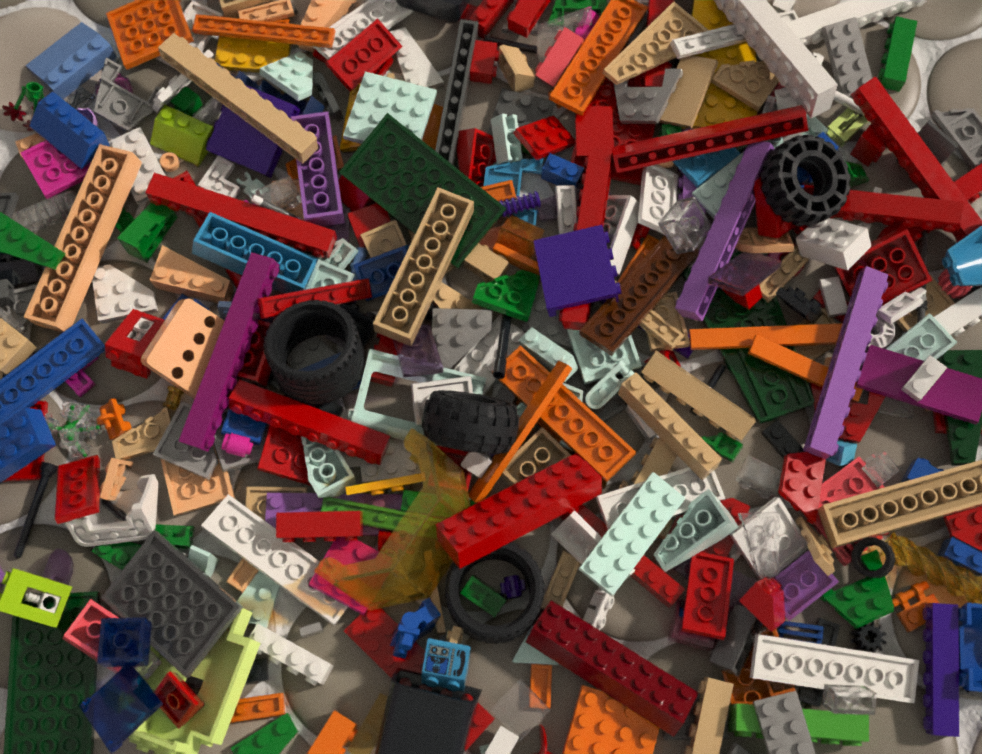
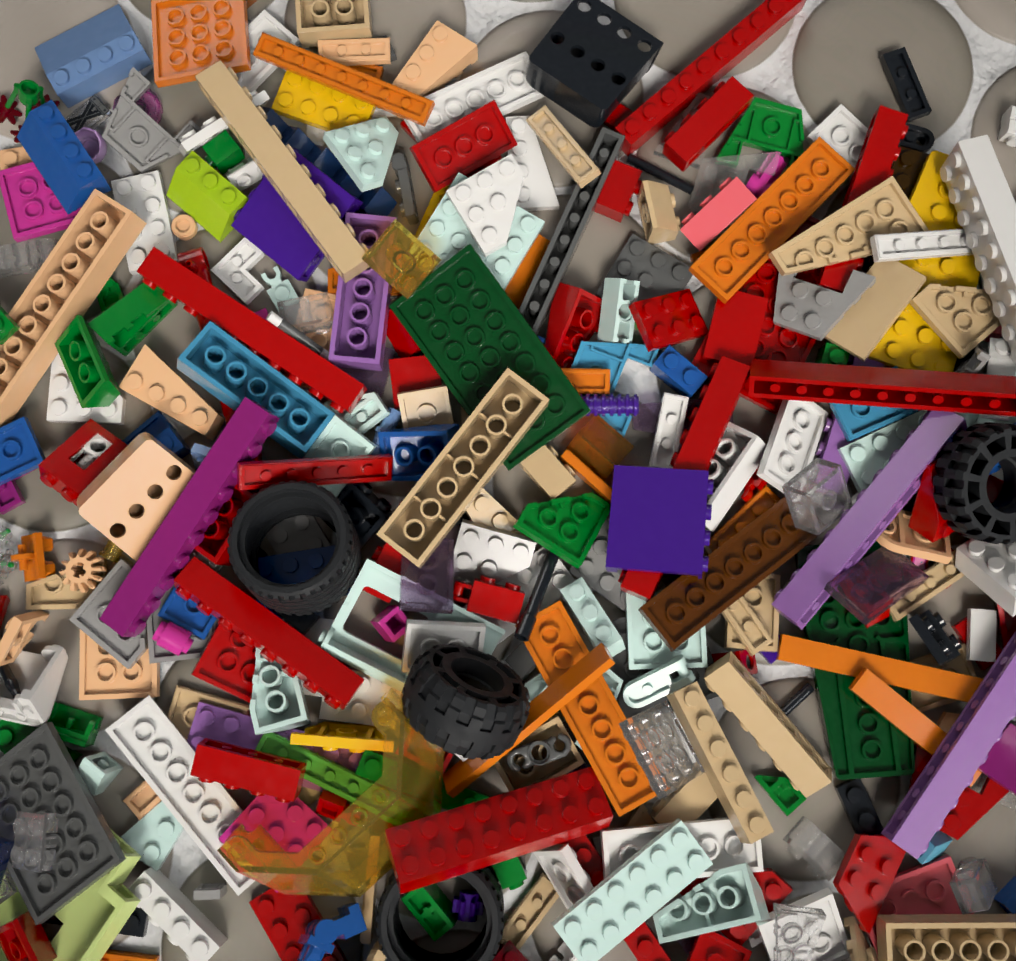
camera: 15 degrees right, 10 degrees up
(122, 268) = (86, 365): none -> green slope
(150, 411) = (75, 576): none -> light nougat gear
(166, 615) = (30, 839): none -> clear hinge
(340, 134) = (401, 258): none -> clear yellow slope
(393, 85) = (489, 203): none -> white plate
(398, 397) = (390, 623): none -> dark pink brick
(435, 39) = (563, 146): none -> tan tile
(469, 358) = (491, 598): none -> red brick
(537, 549) = (510, 873): none -> green brick
(545, 453) = (552, 753): none -> dark grey piece
(624, 425) = (662, 749): none -> clear plate

